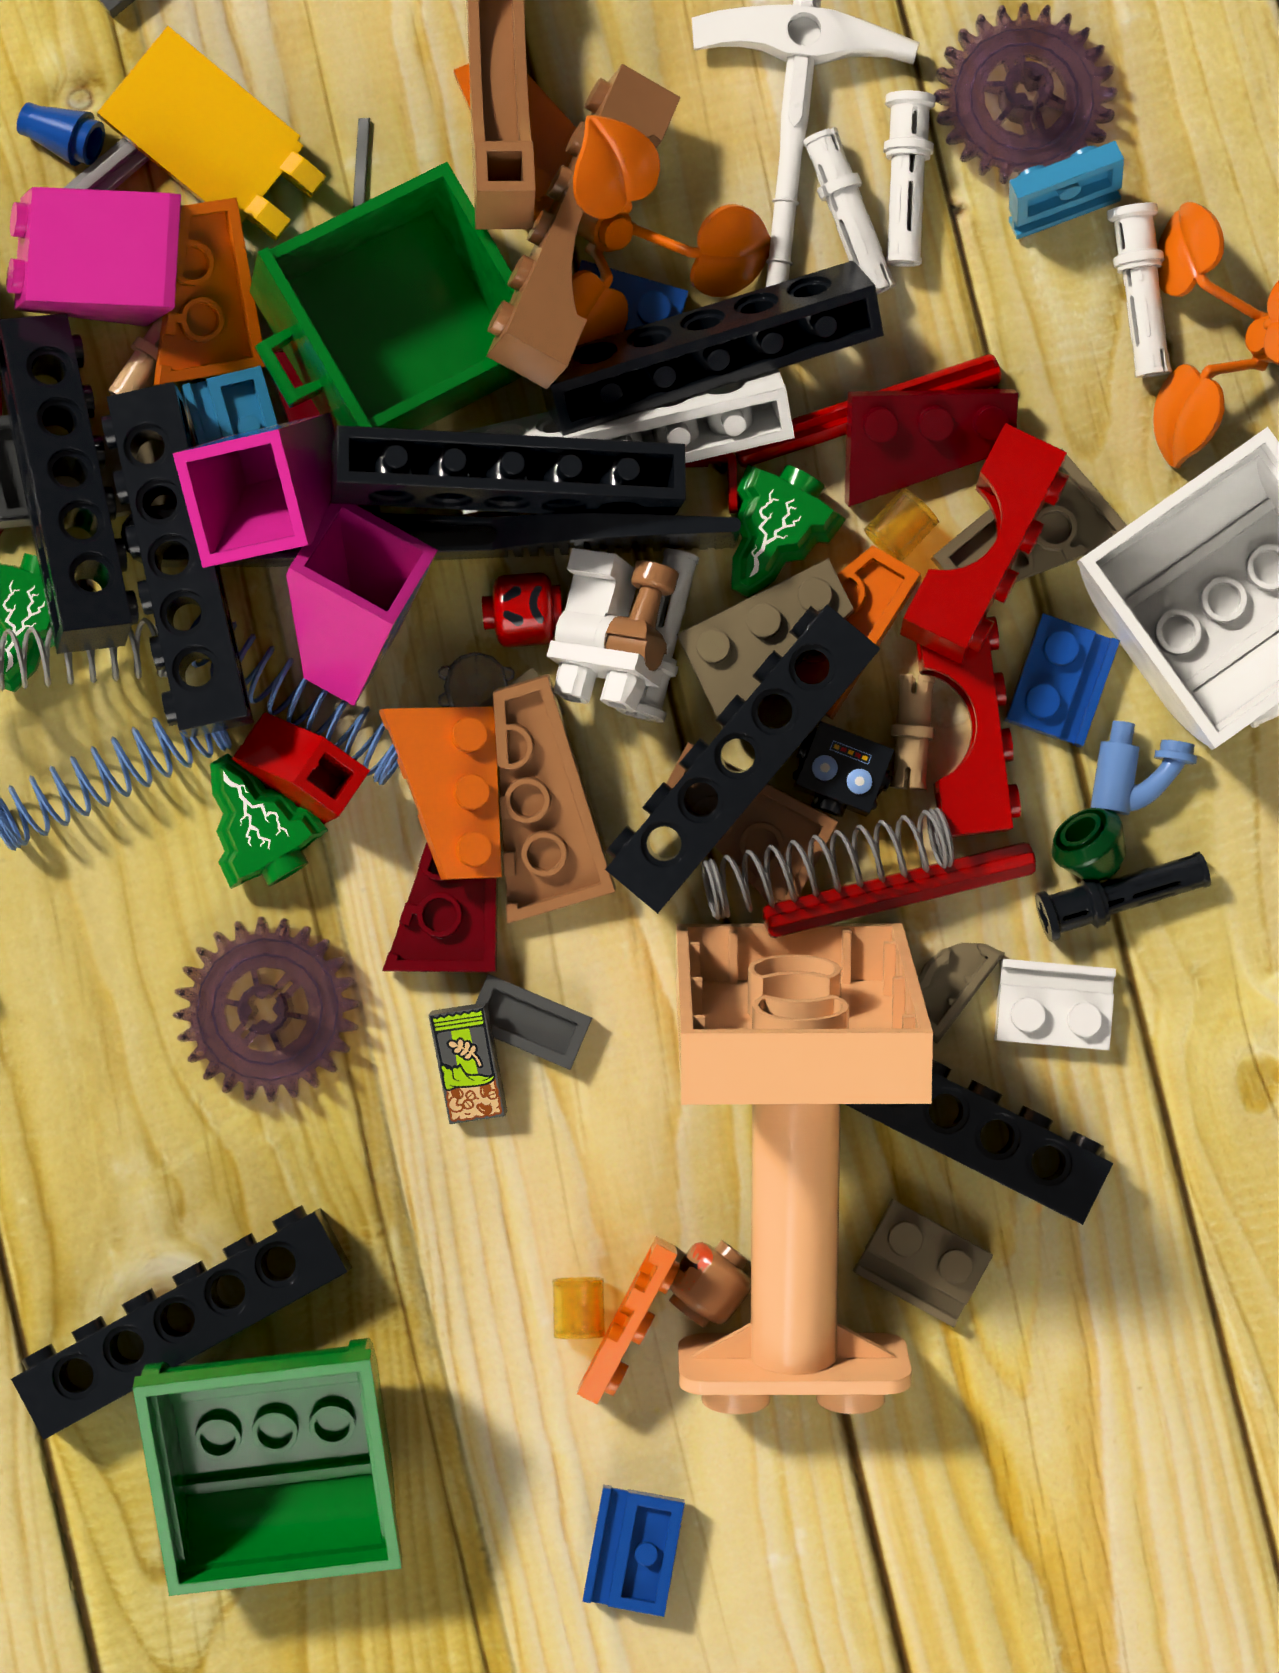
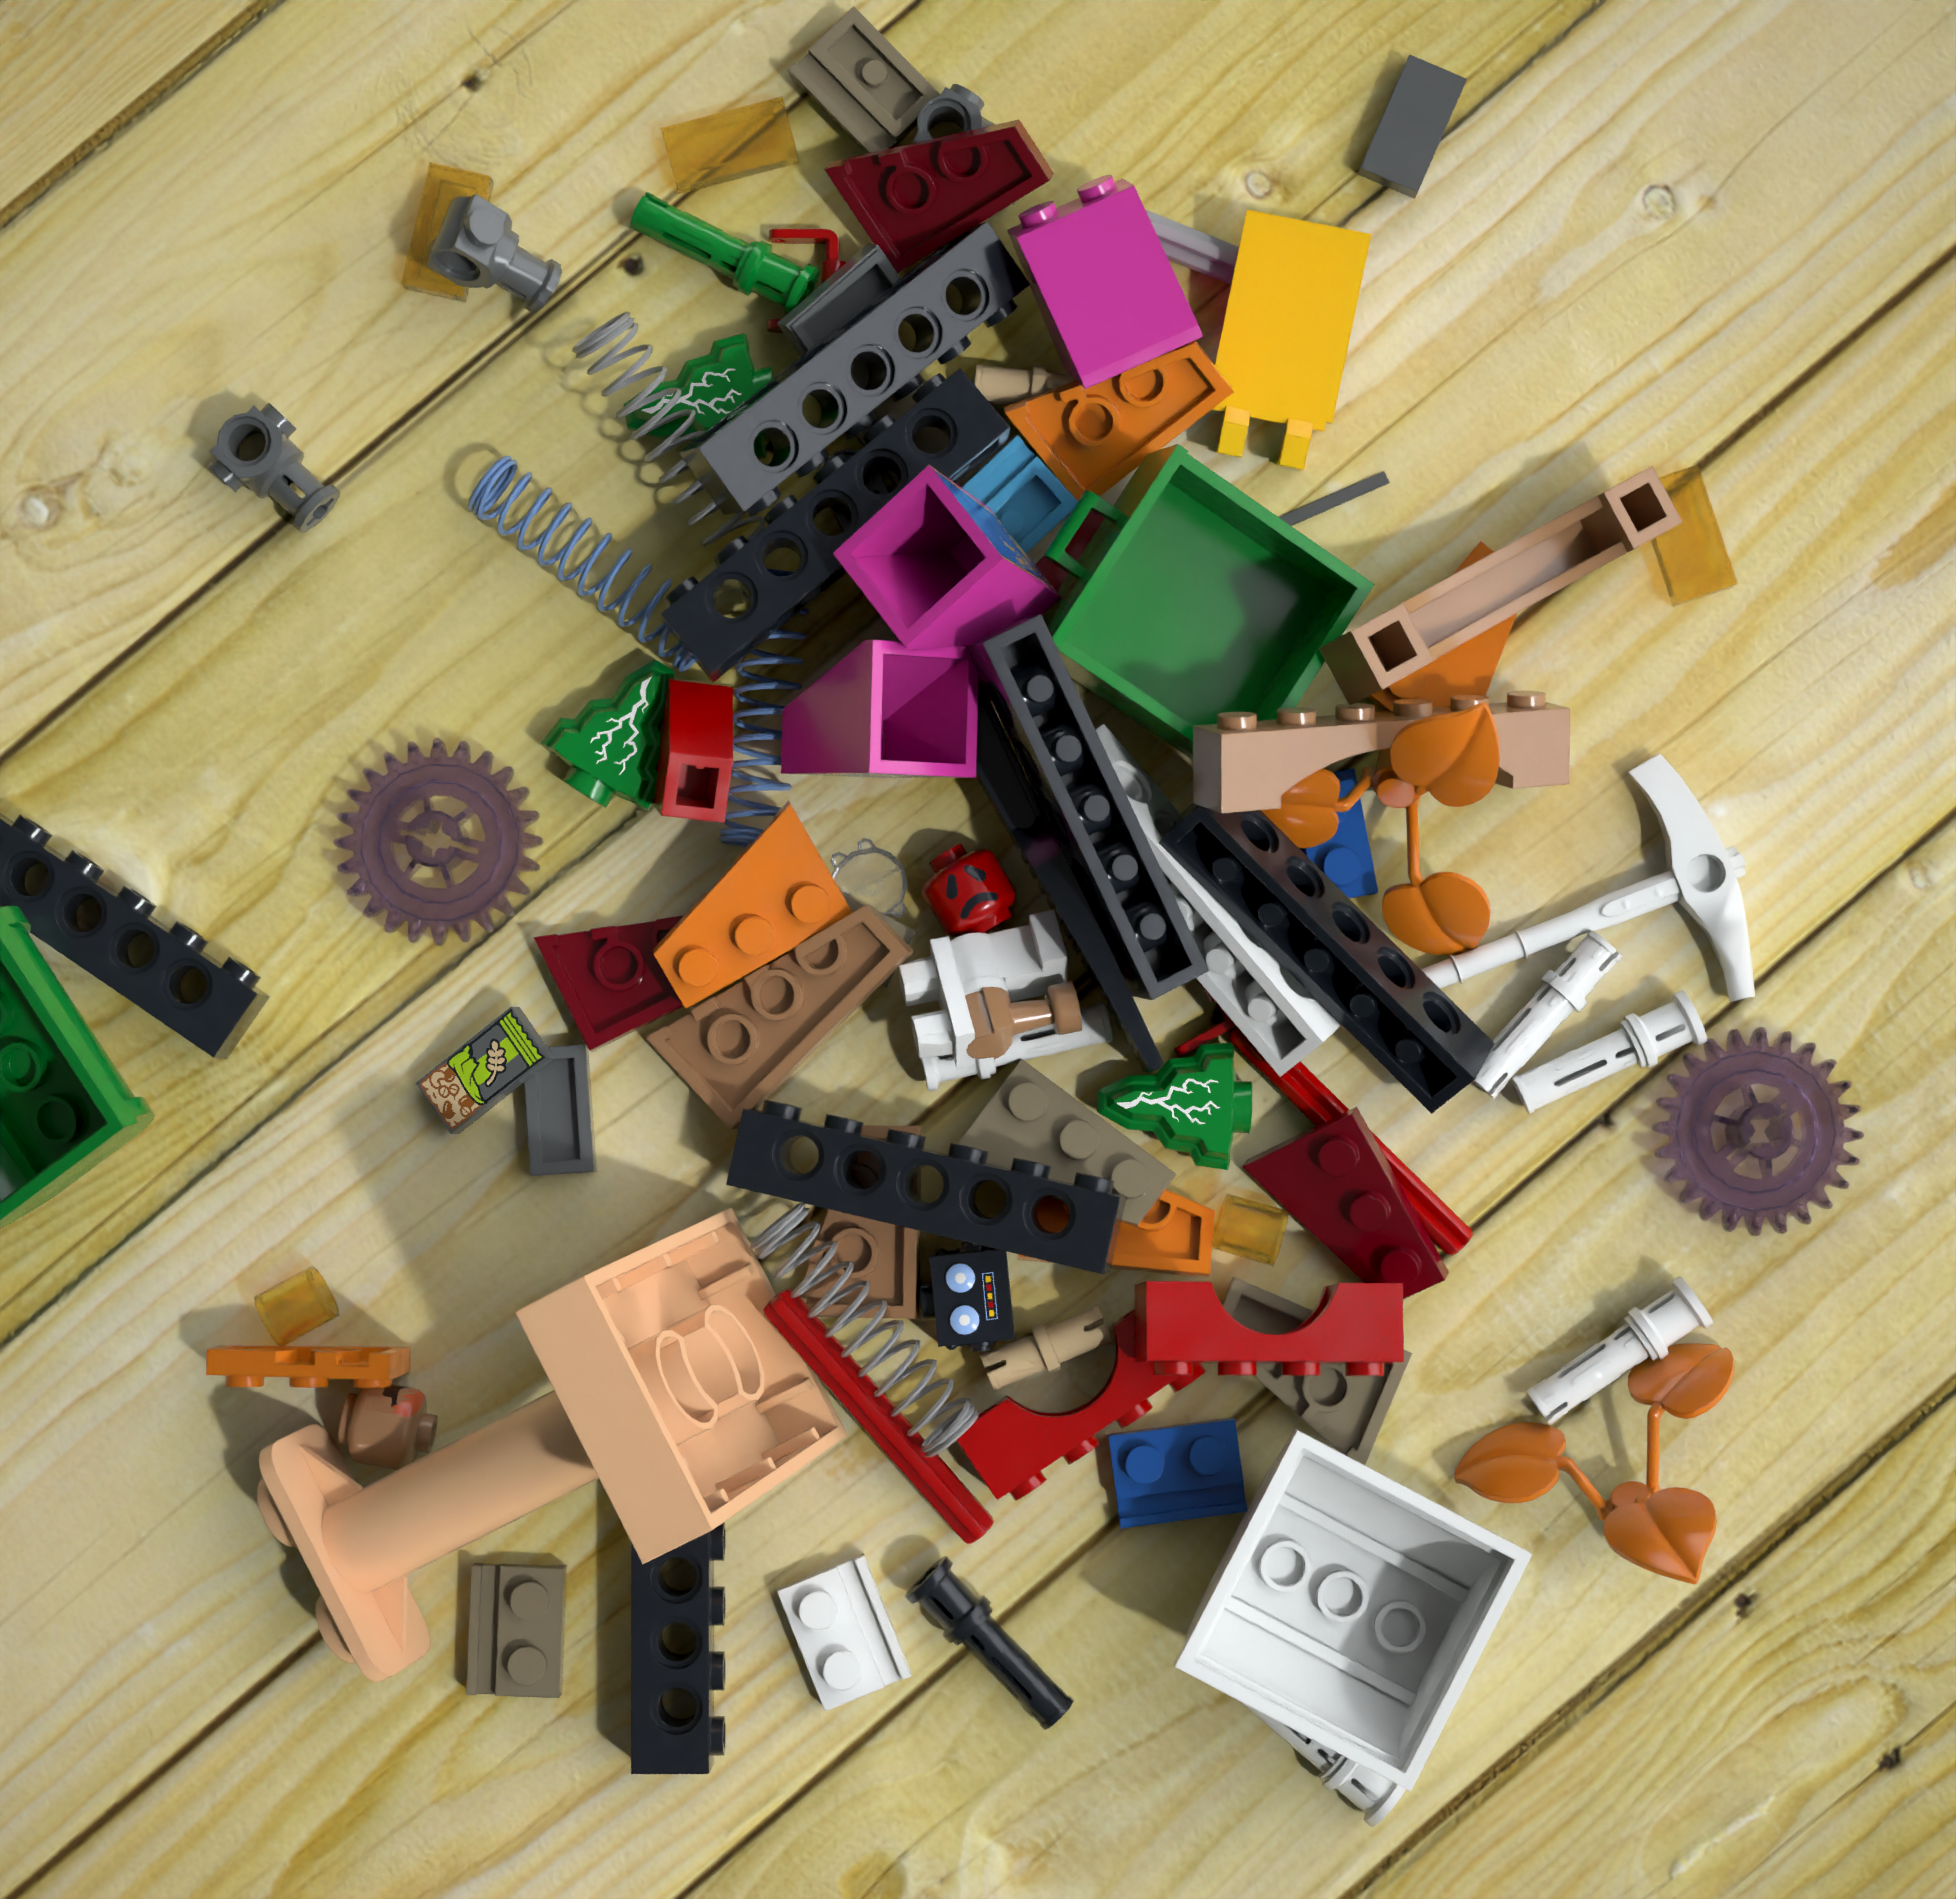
camera: 65 degrees right, 0 degrees up
(65, 132) = (1214, 187): blue cone -> none
(633, 1550) = (83, 1485): blue plate -> none
(953, 979) = (812, 1515): dark tan tile -> none
(1065, 189) = (1678, 1223): dark azure plate -> none
(1090, 844) = (1023, 1586): dark green cone -> none
(1117, 769) = (1114, 1575): medium blue plant -> none

